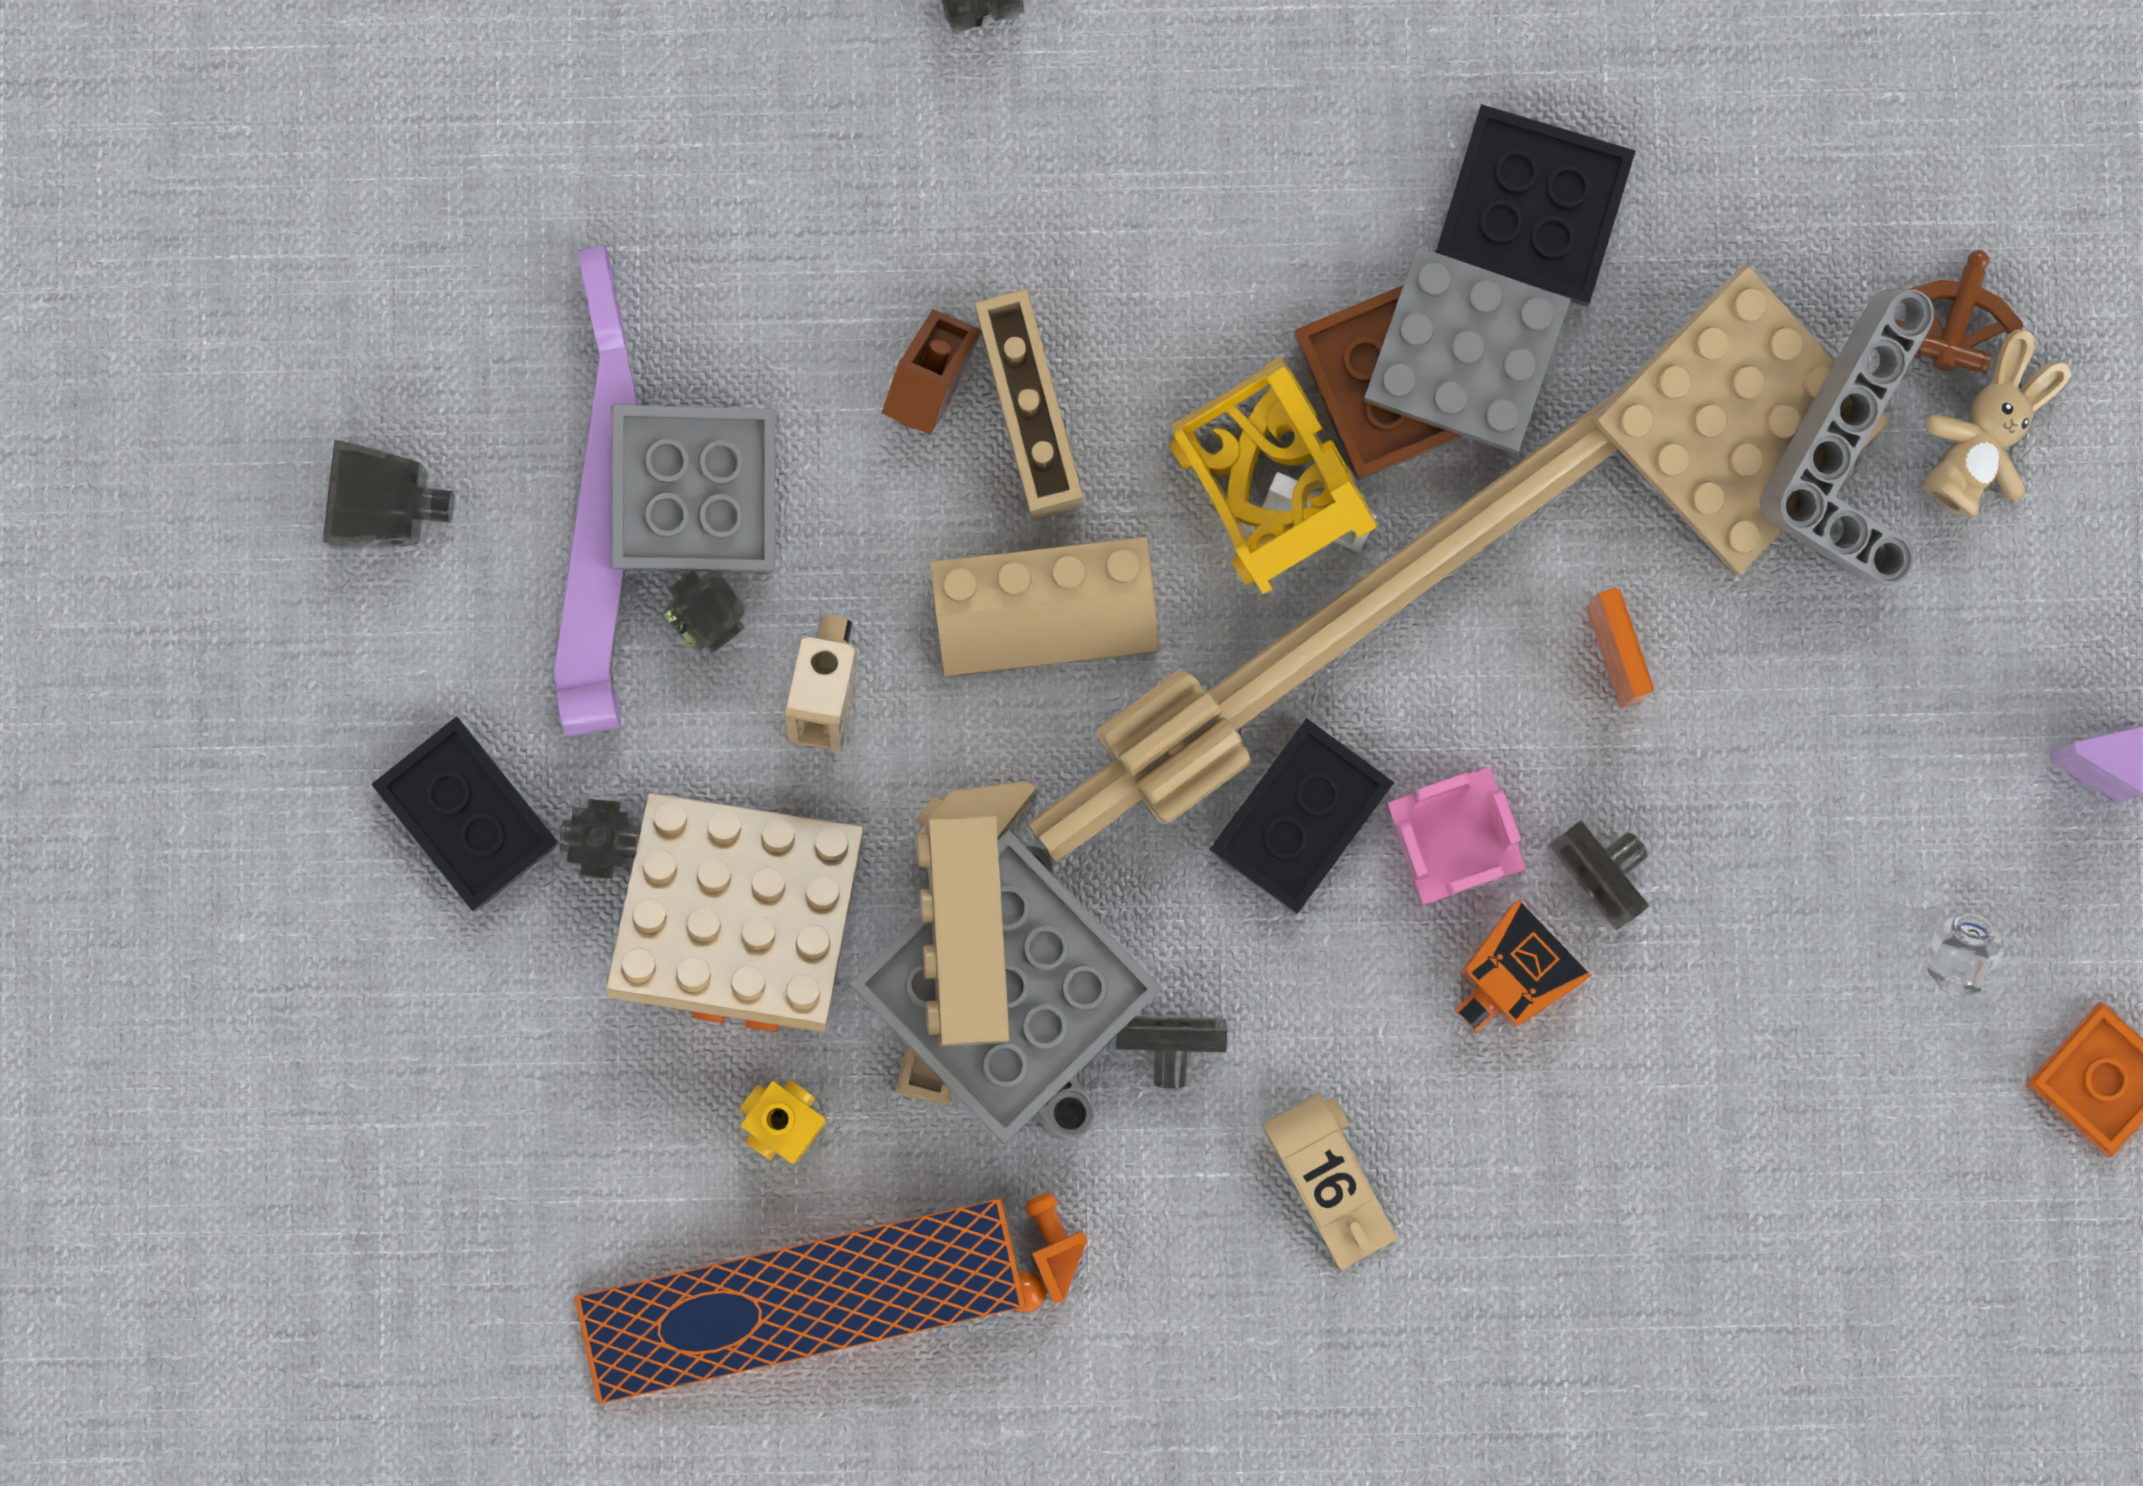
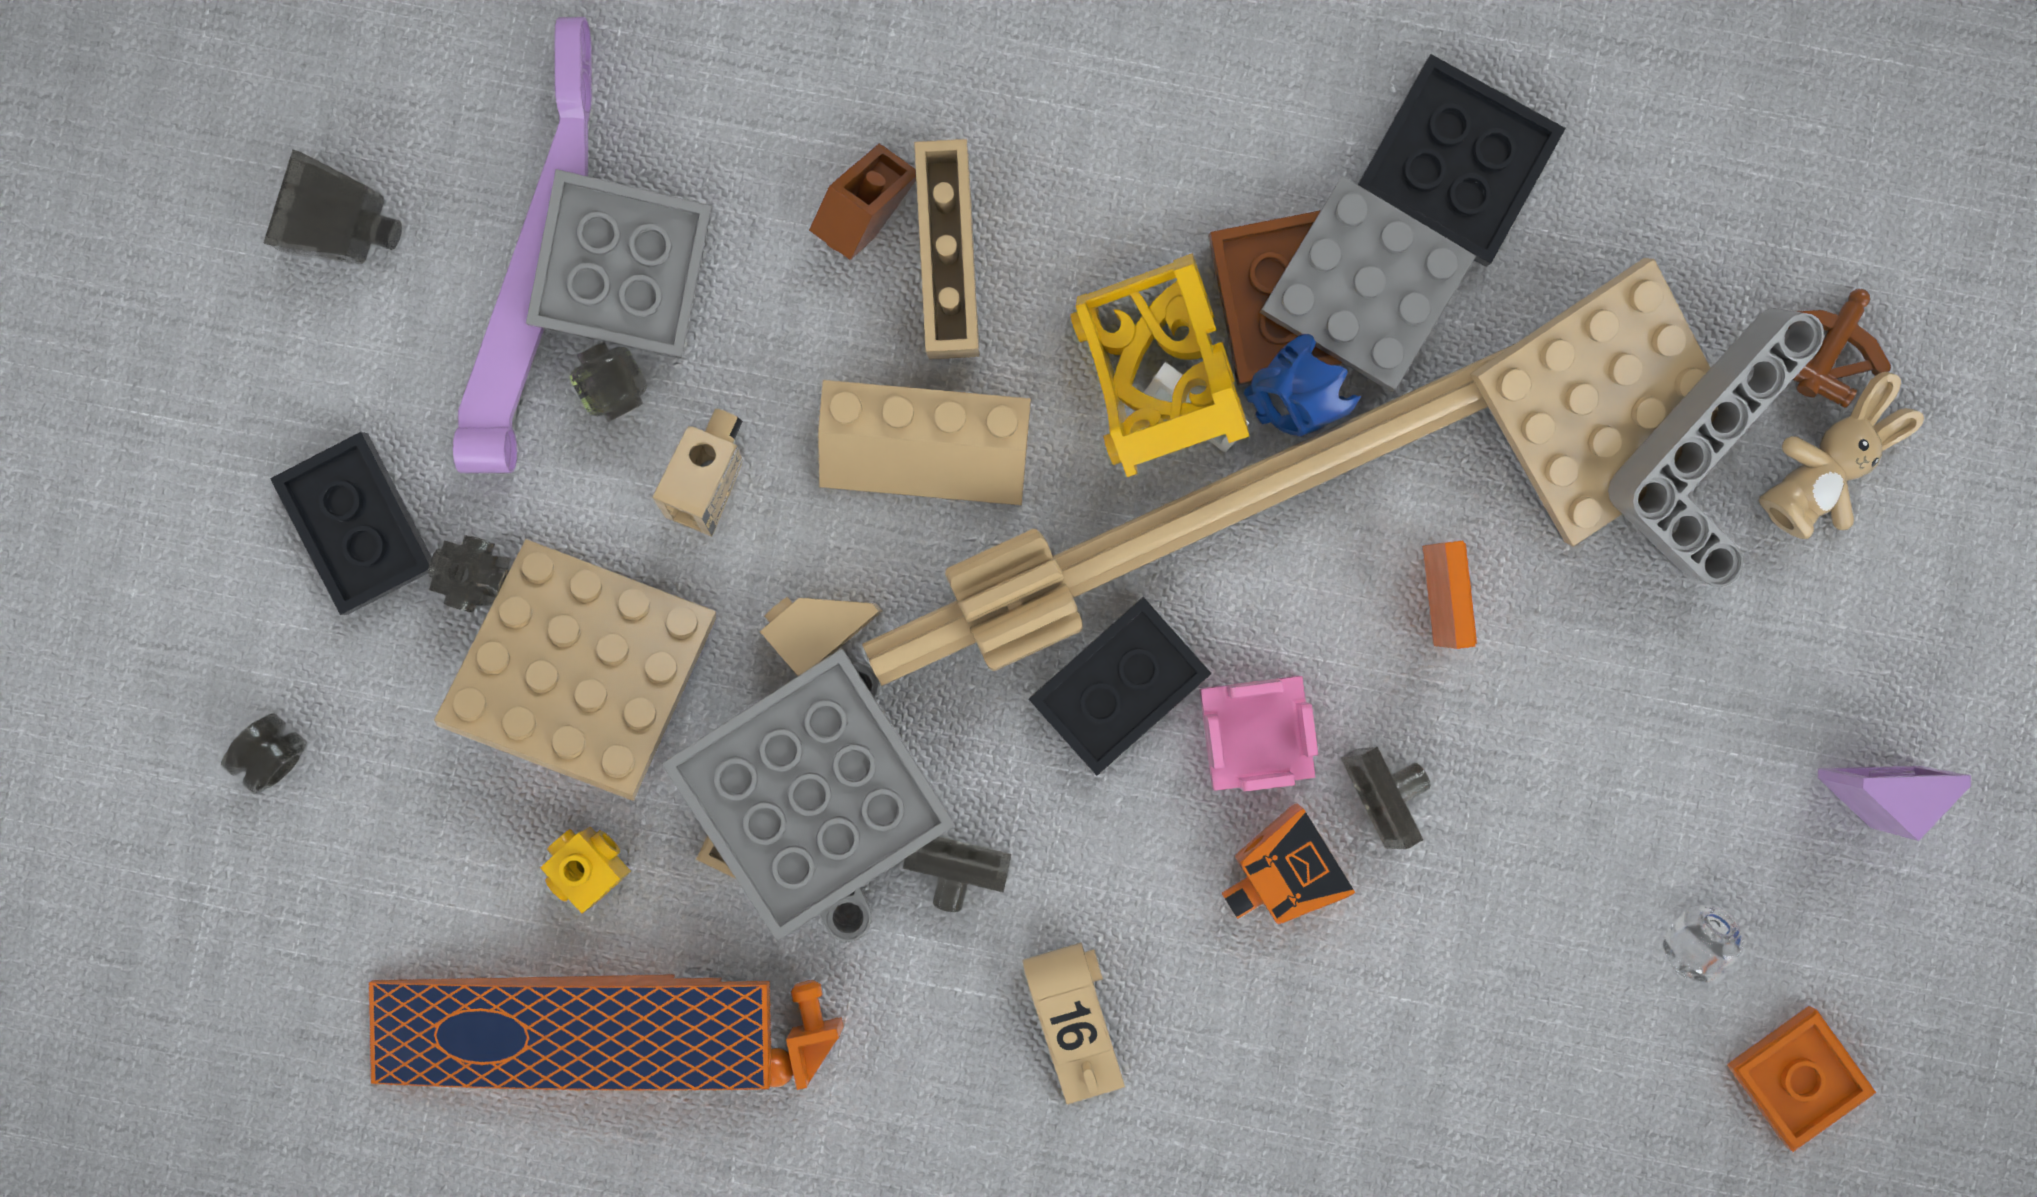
camera: 10 degrees right, 5 degrees up
(421, 1072) = (263, 753): none -> clear smoke wheel
(965, 930) = (777, 741): tan brick -> none
(1426, 468) = (1304, 385): none -> blue helmet

